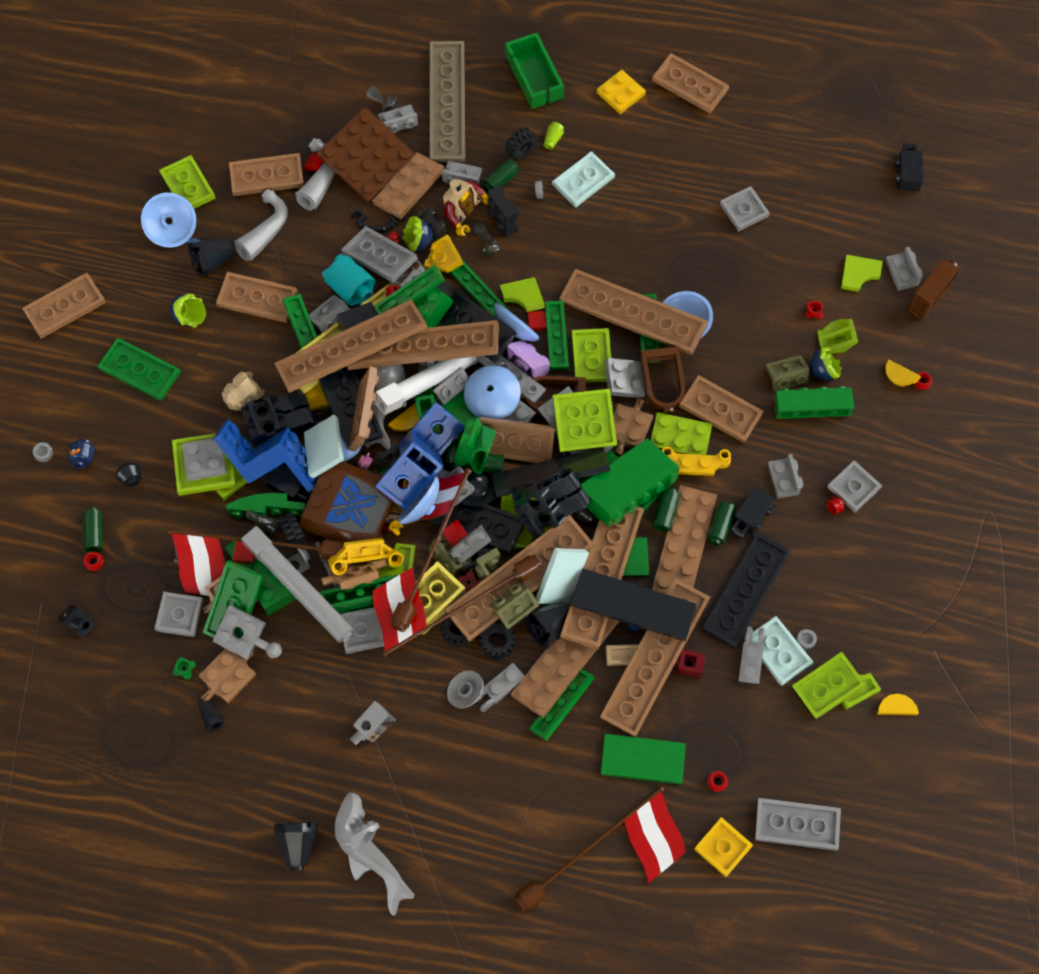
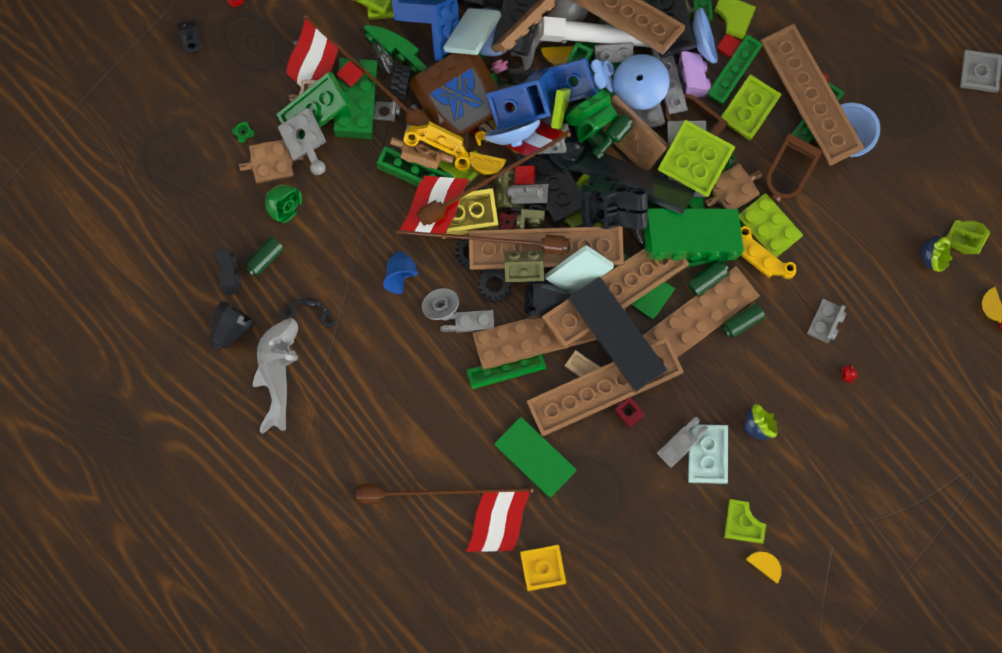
camera: 35 degrees right, 10 degrees up
(178, 614) = (269, 86): light grey plate -> none
(211, 717) = (235, 186): black cone -> none
(253, 788) = (230, 279): none -> black brick
(263, 701) = (282, 202): none -> green cylinder
(281, 760) = (263, 257): none -> dark green brick
(284, 481) = (423, 40): black brick -> none
(301, 589) = (370, 130): light grey brick -> none
(352, 770) = (309, 302): none -> black piece
(366, 630) = (395, 199): light grey plate -> none
(379, 720) = (350, 278): light grey torso -> none
(407, 683) = (398, 268): none -> blue helmet
(414, 547) = (486, 164): none -> yellow tile
(445, 456) = (560, 106): none -> lime tile
(456, 406) = (603, 72): none -> light blue plate
(504, 445) = (615, 133): none -> dark green piece
(624, 378) = (761, 145): light grey plate -> none
(717, 775) = (578, 510): red plate -> none
(721, 409) = (820, 228): medium nougat plate -> none
(746, 590) = (721, 387): black tile -> none
(752, 512) = (776, 330): black brick -> none
(788, 372) = (900, 237): olive bracket -> none
(797, 824) = (613, 594): light grey plate -> none
(801, 595) = (760, 423): none -> hair
(806, 639) = (737, 461): light grey tile -> none
(813, 402) = (900, 277): green brick -> none
(818, 306) = (967, 194): red plate -> none
(829, 685) = (723, 509): lime plate -> none
(854, 486) = (877, 370): light grey plate -> none

